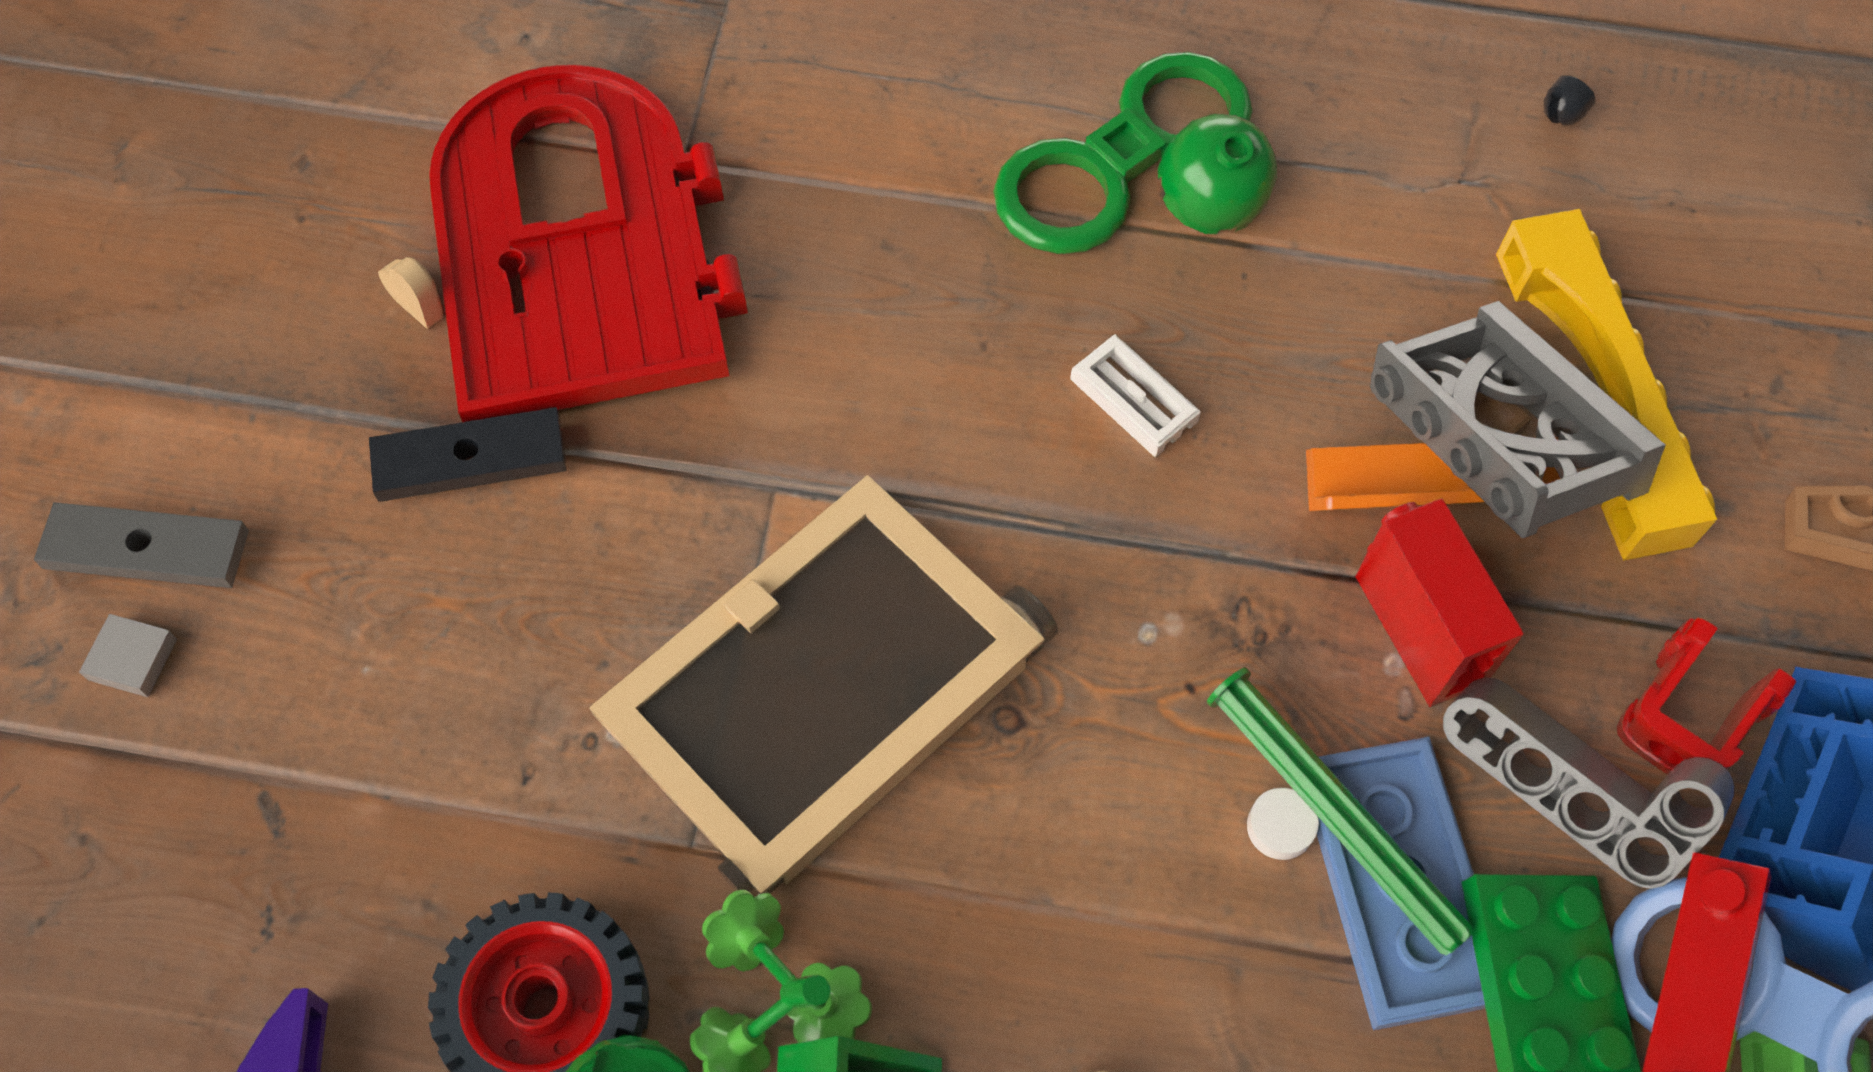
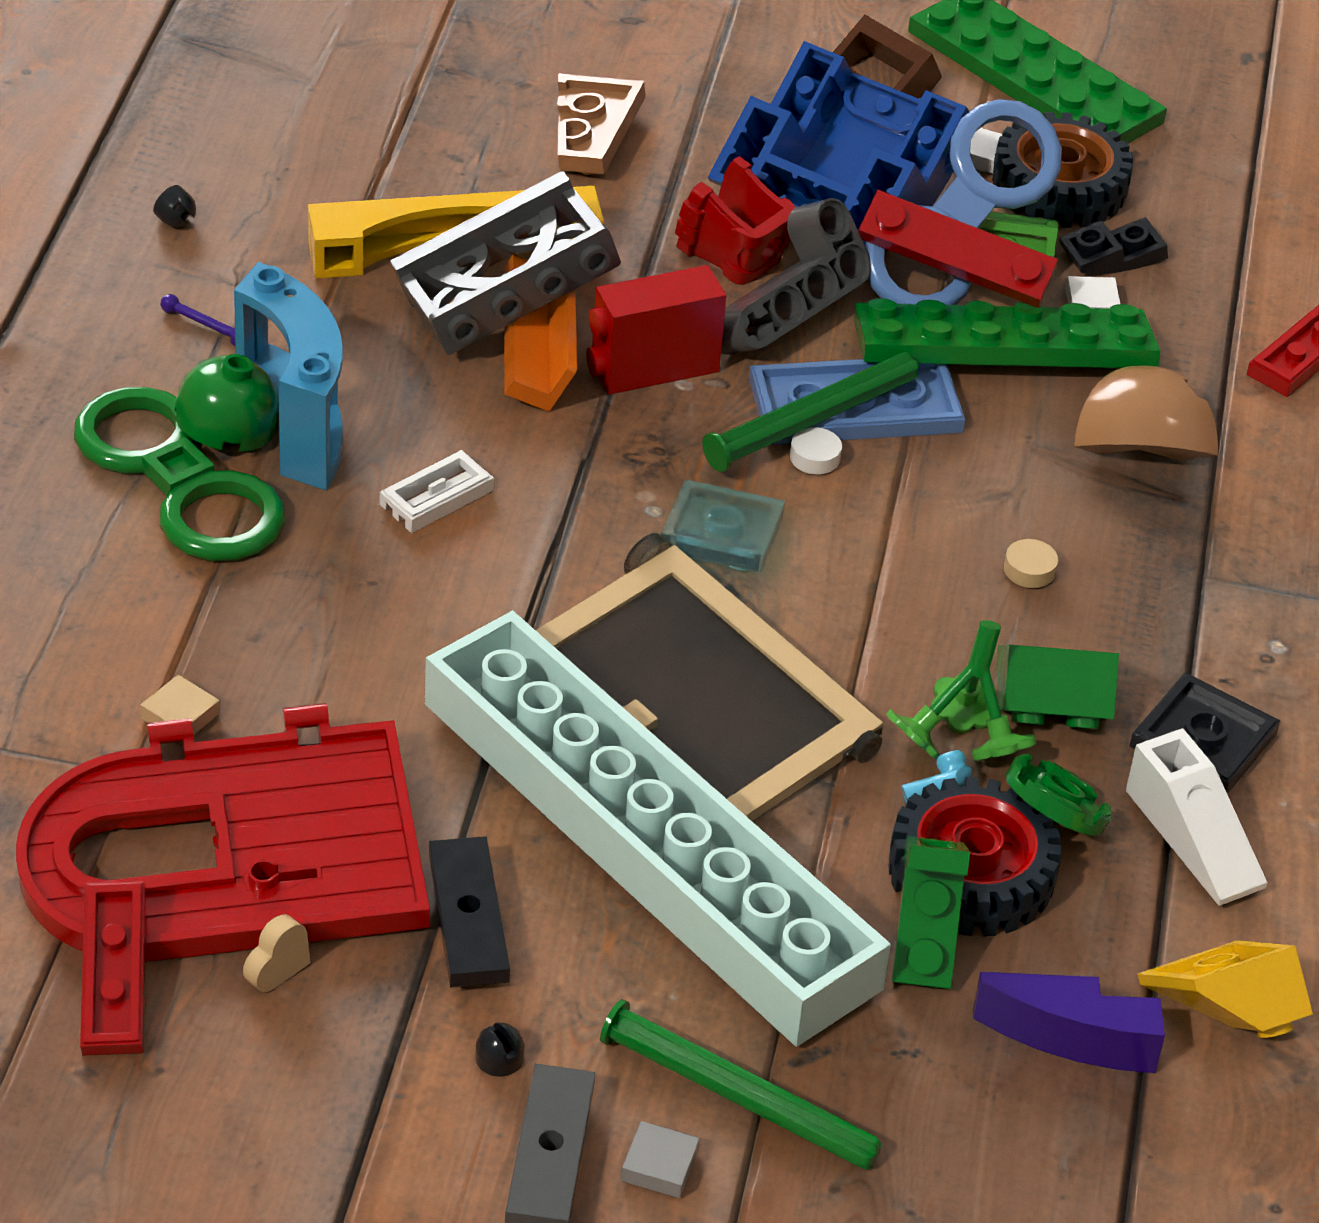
camera: 90 degrees left, 20 degrees down
(206, 736) = (740, 1086): none -> green axle
(291, 499) = (491, 1054): none -> black hinge
(397, 156) = (113, 968): none -> red tile
(425, 920) = (929, 911): none -> green bracket
(557, 629) = (658, 828): none -> light aqua brick
(669, 975) = (950, 766): none -> medium azure arm
(764, 184) = (180, 701): none -> tan tile
(1111, 705) = (724, 525): none -> clear light blue plate
(1279, 197) = (304, 377): none -> dark azure window
(1368, 186) = (171, 304): none -> dark purple hinge

